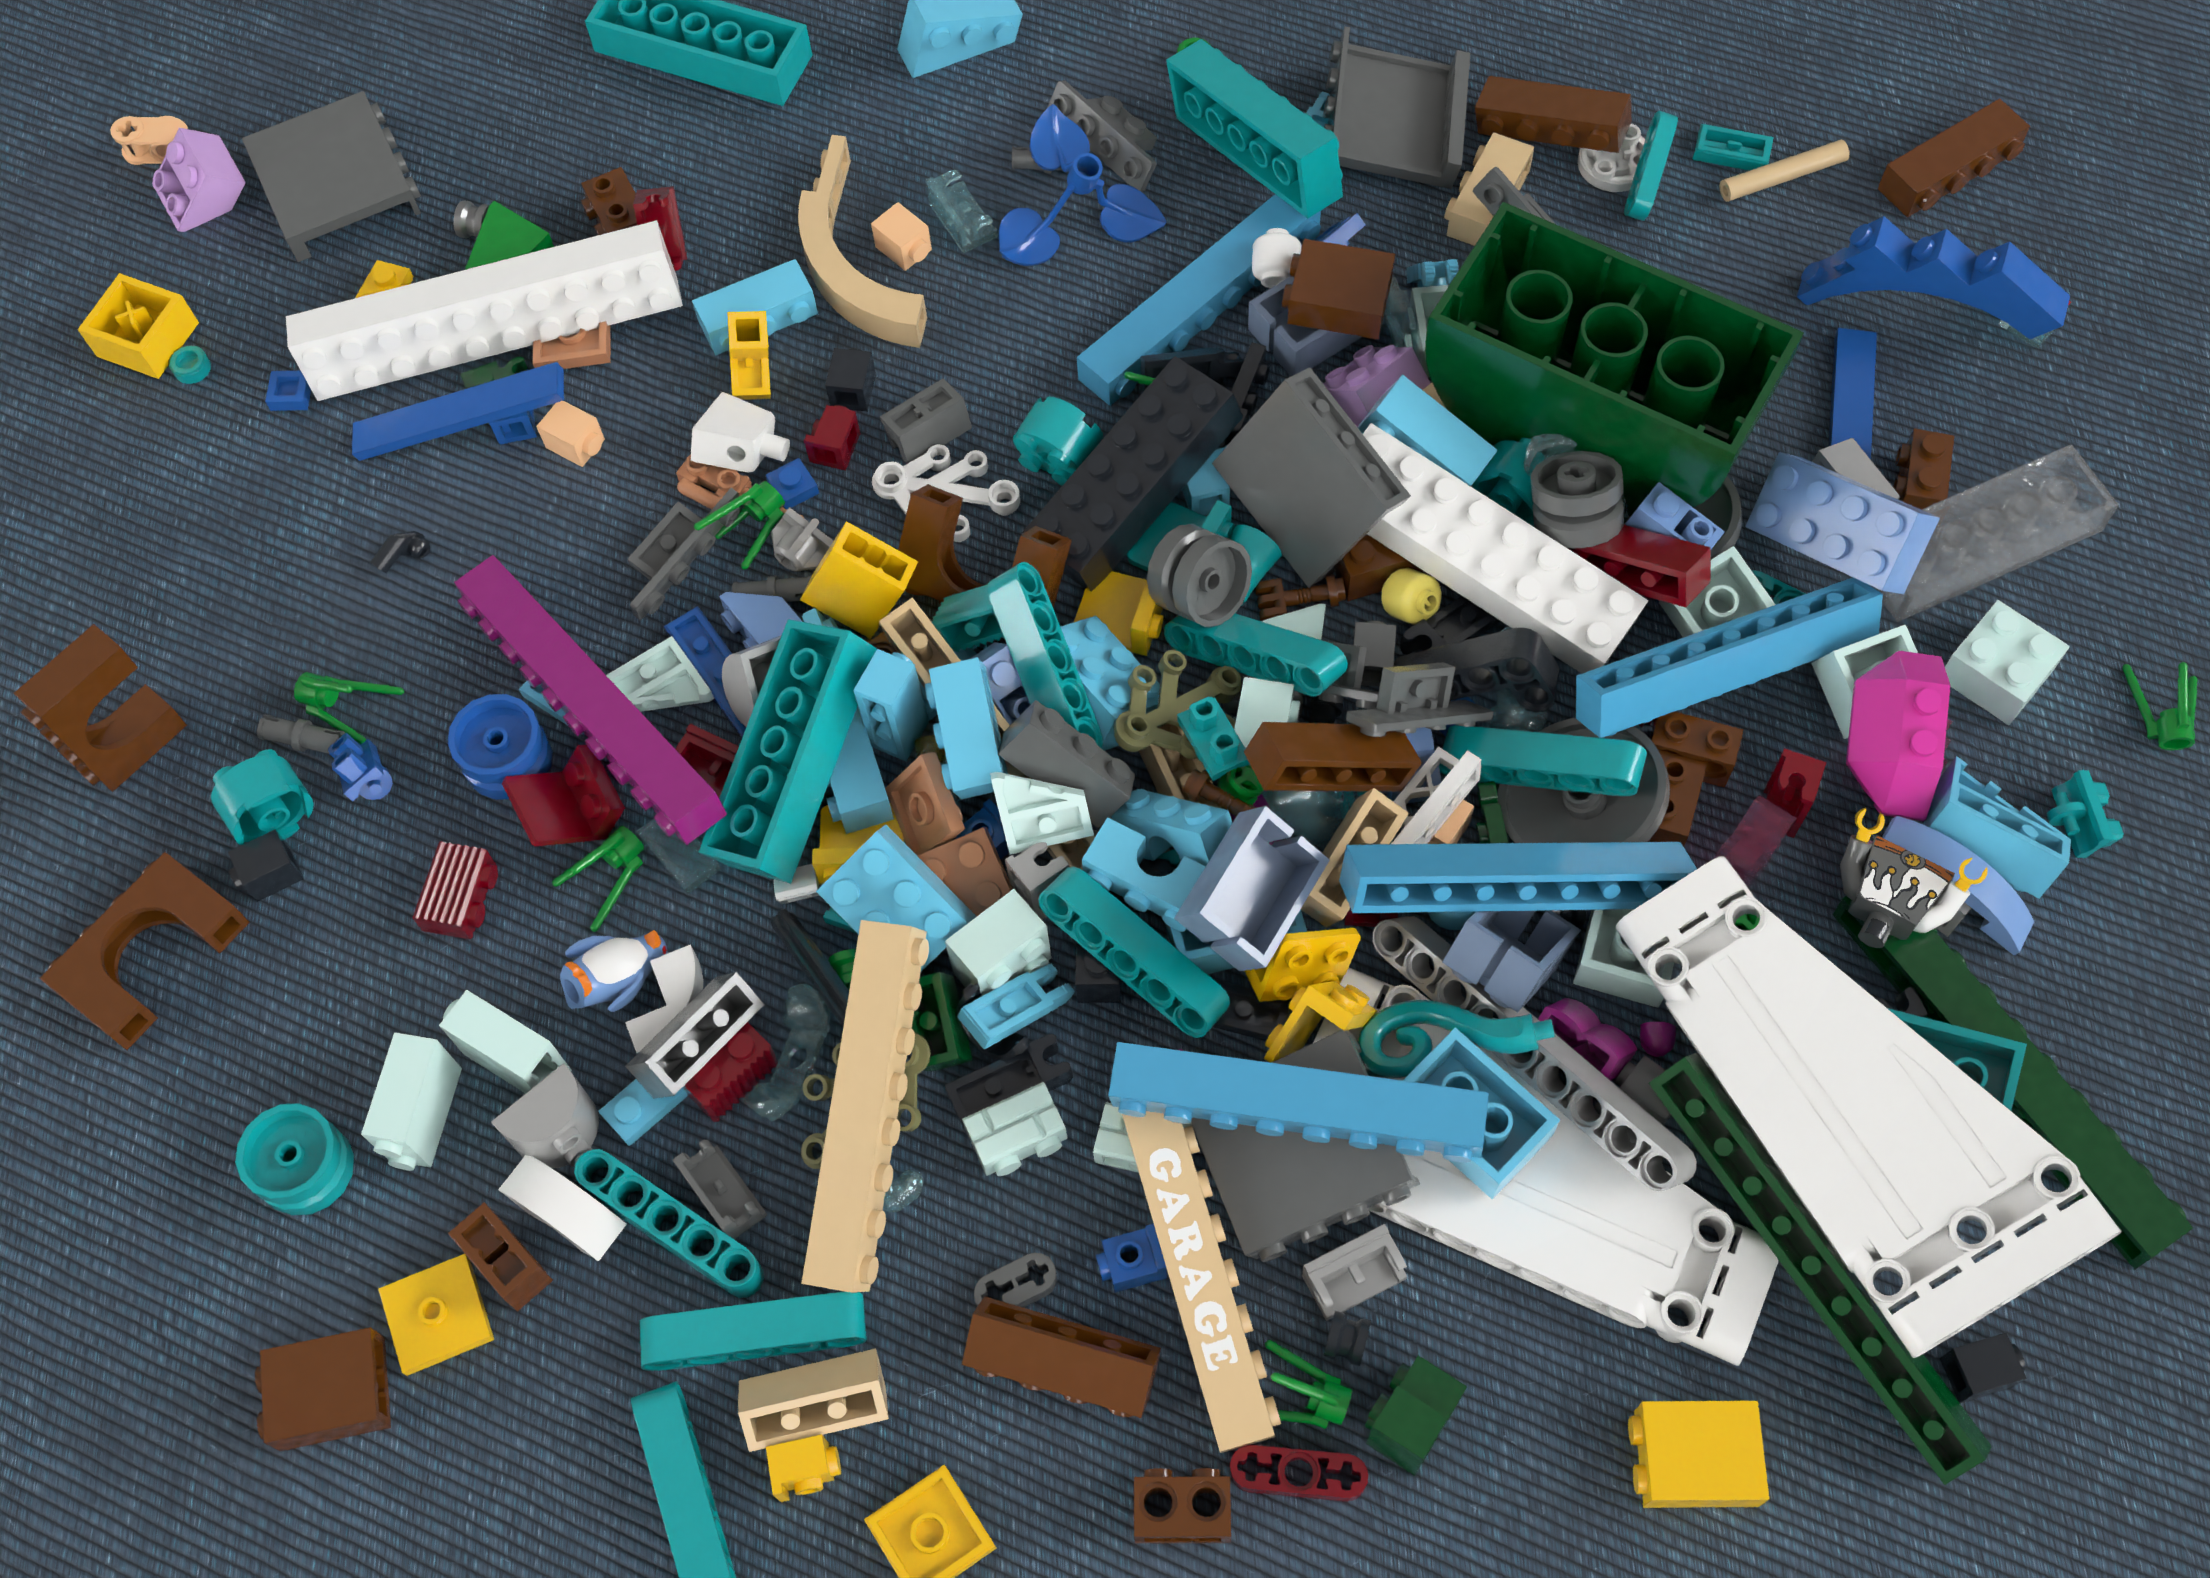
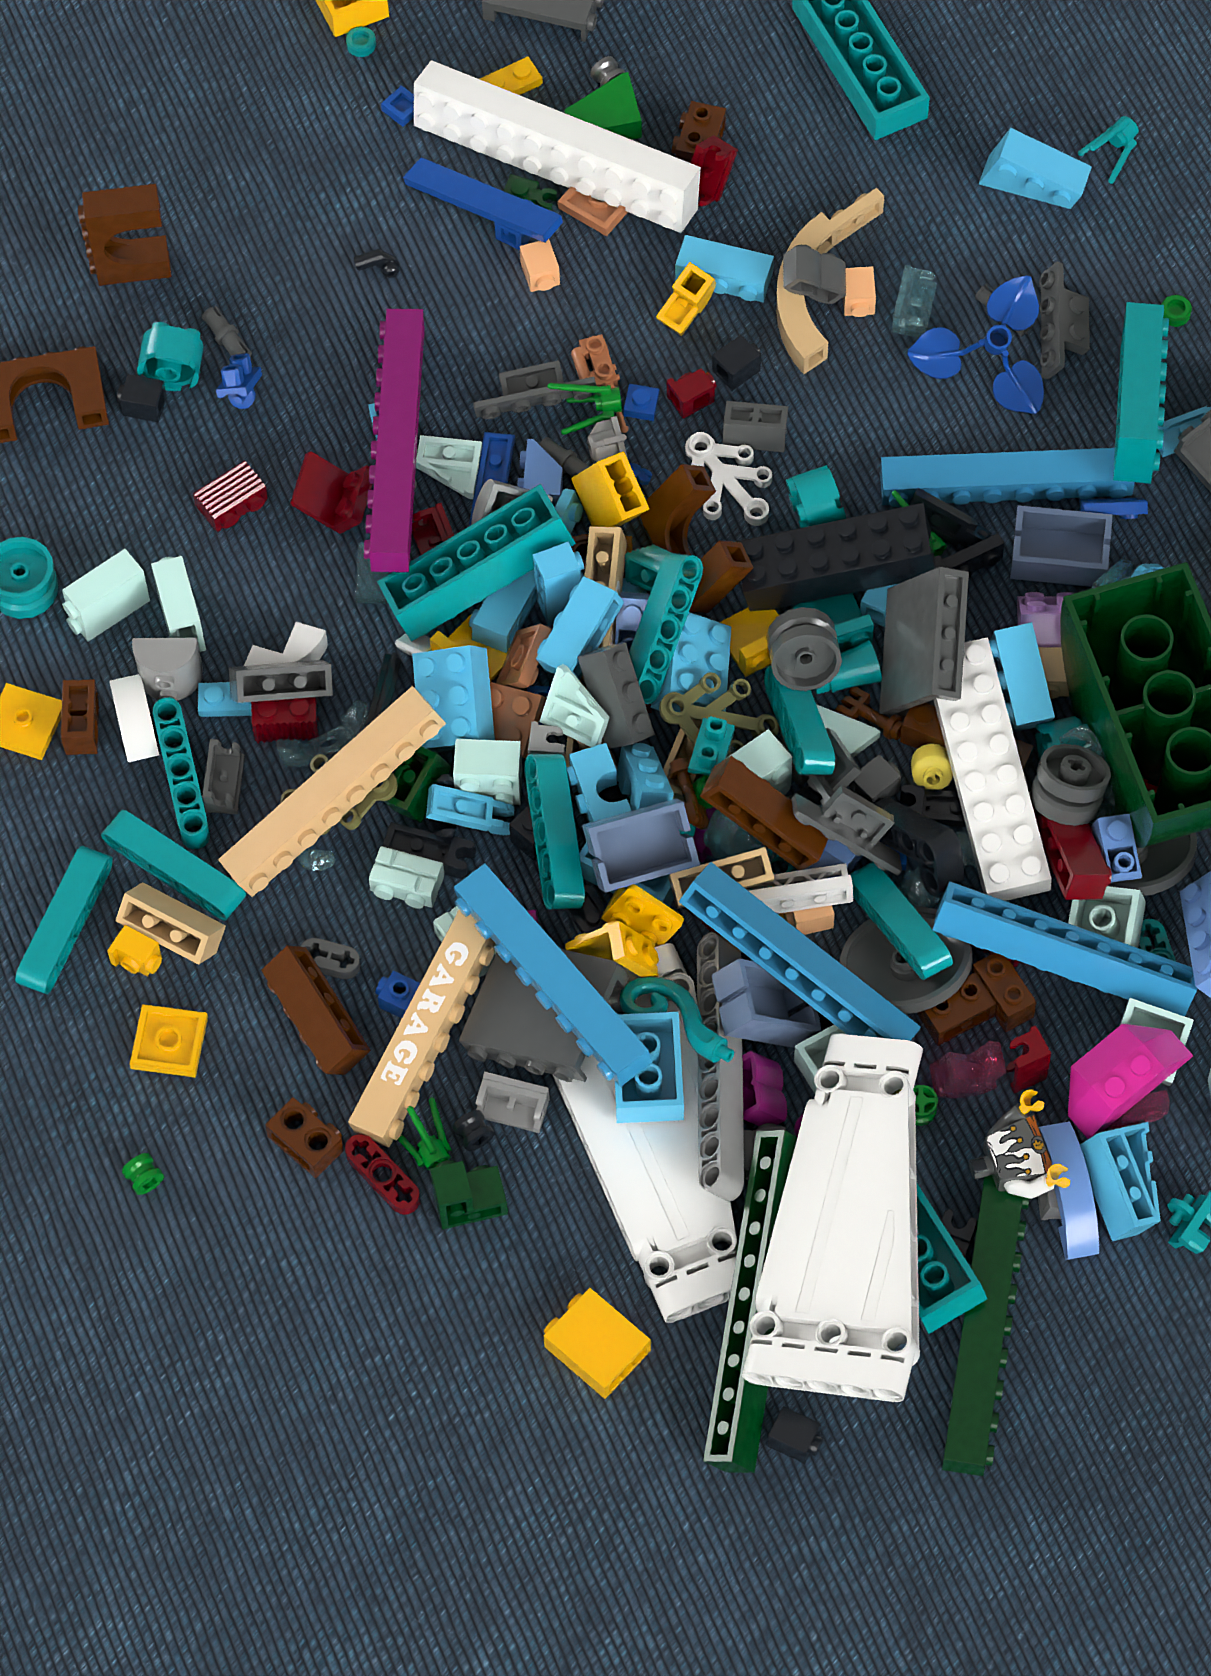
camera: 40 degrees right, 0 degrees up
(323, 692) = (260, 317): green plant -> none
(497, 740) = (328, 427): blue wheel -> none
(609, 969) = (272, 609): animal -> none
(618, 849) = (339, 545): green plant -> none
(736, 435) = (631, 345): white torso -> none
(853, 243) = (814, 274): none -> dark grey brick
(1273, 256) = (1066, 490): white head -> none
(1339, 288) = (1075, 541): reddish brown brick -> none
(1492, 828) = (836, 937): dark green plate -> none

